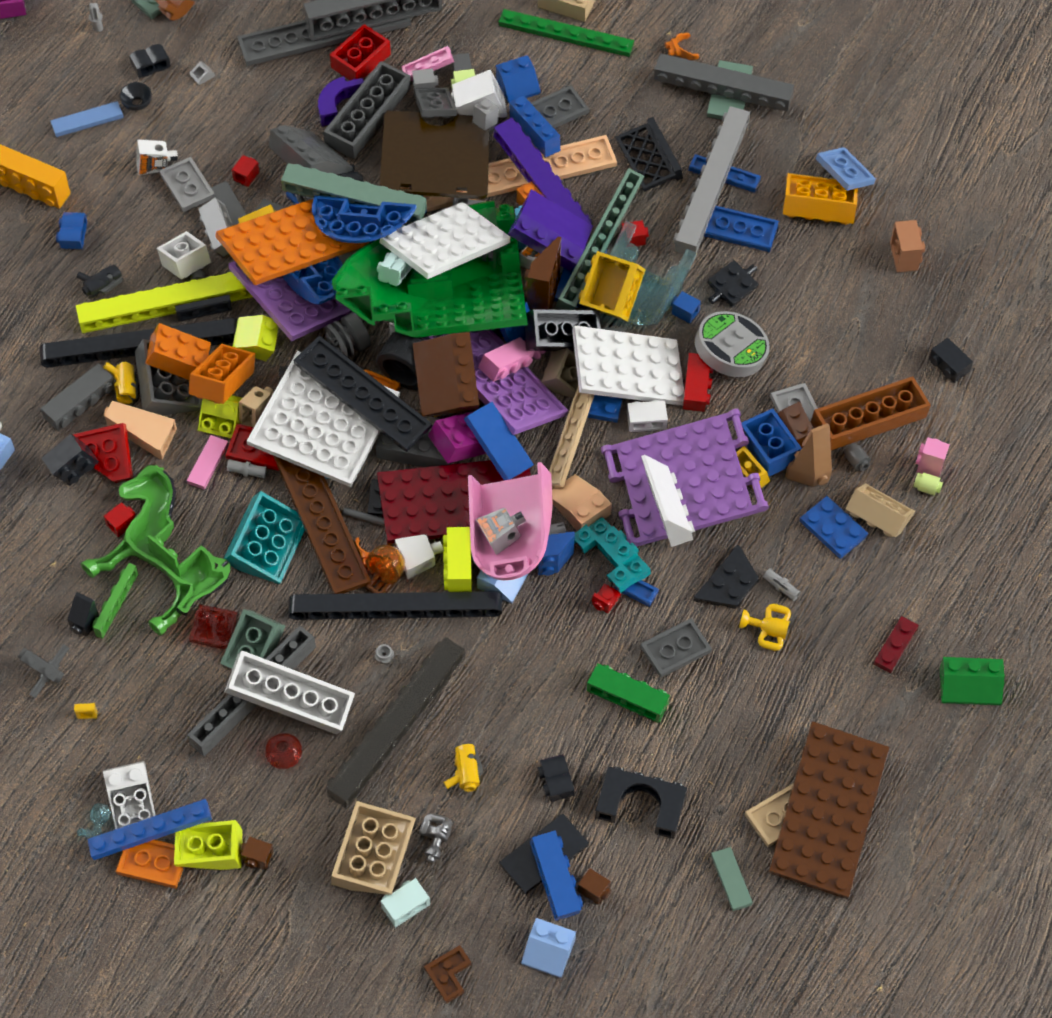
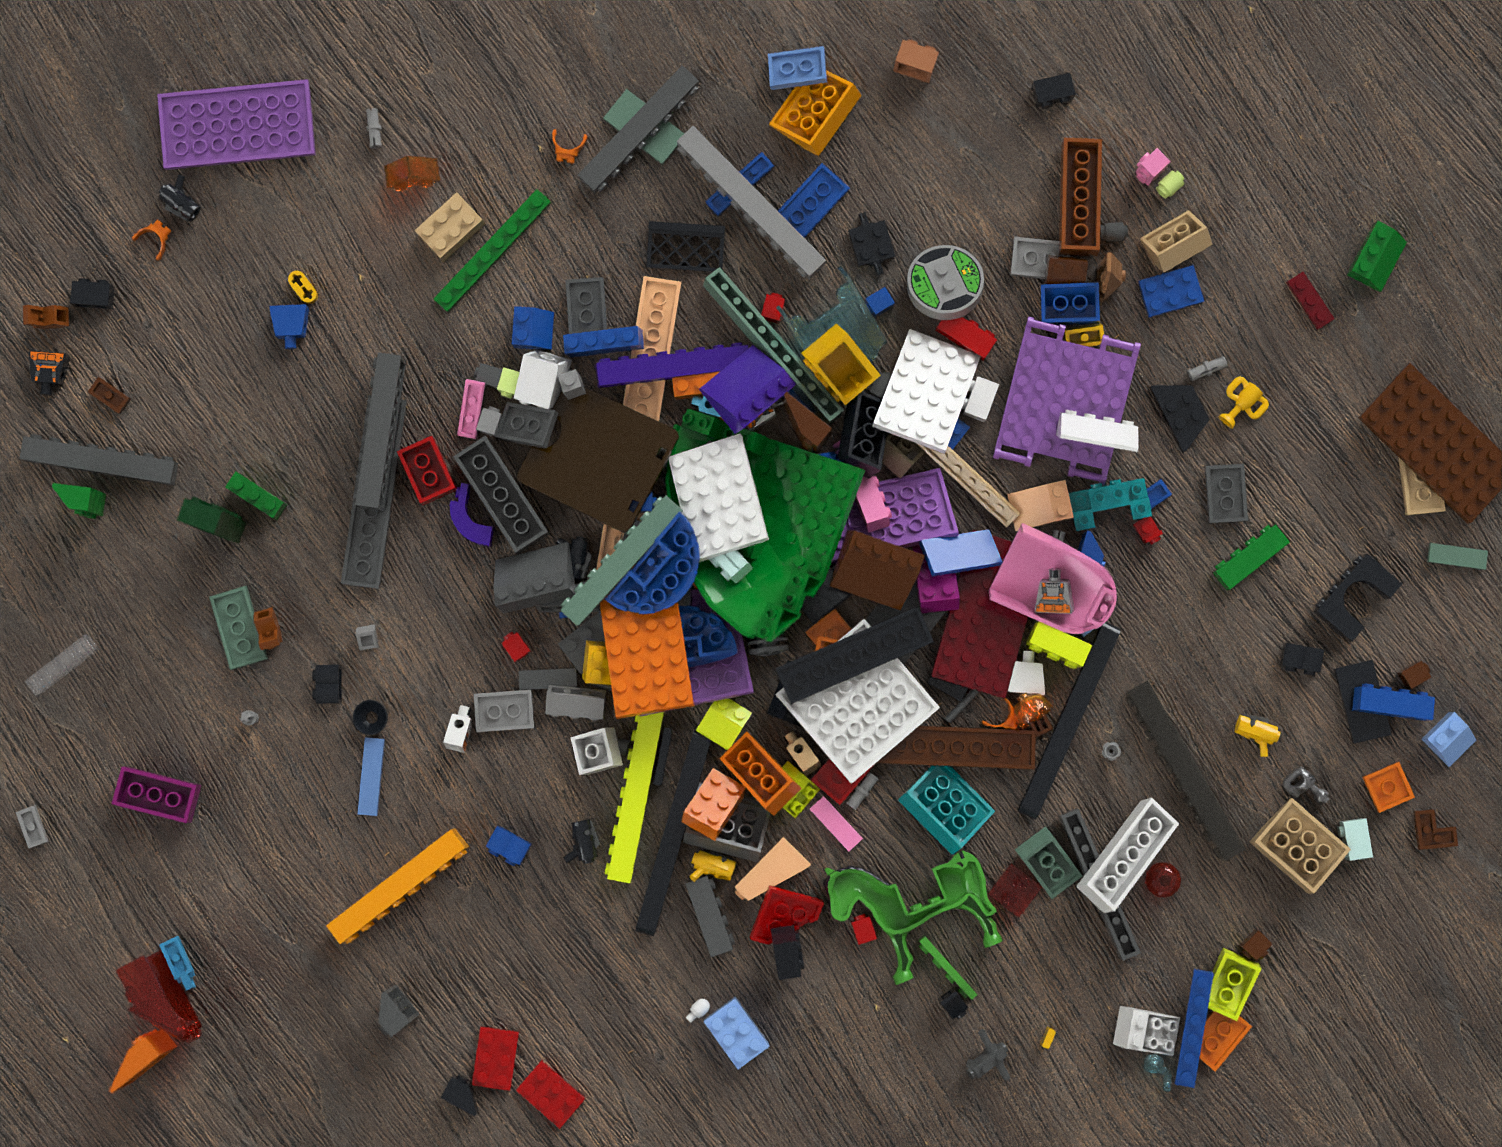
camera: 60 degrees left, 25 degrees up
(472, 911) = (1388, 787): none -> orange plate

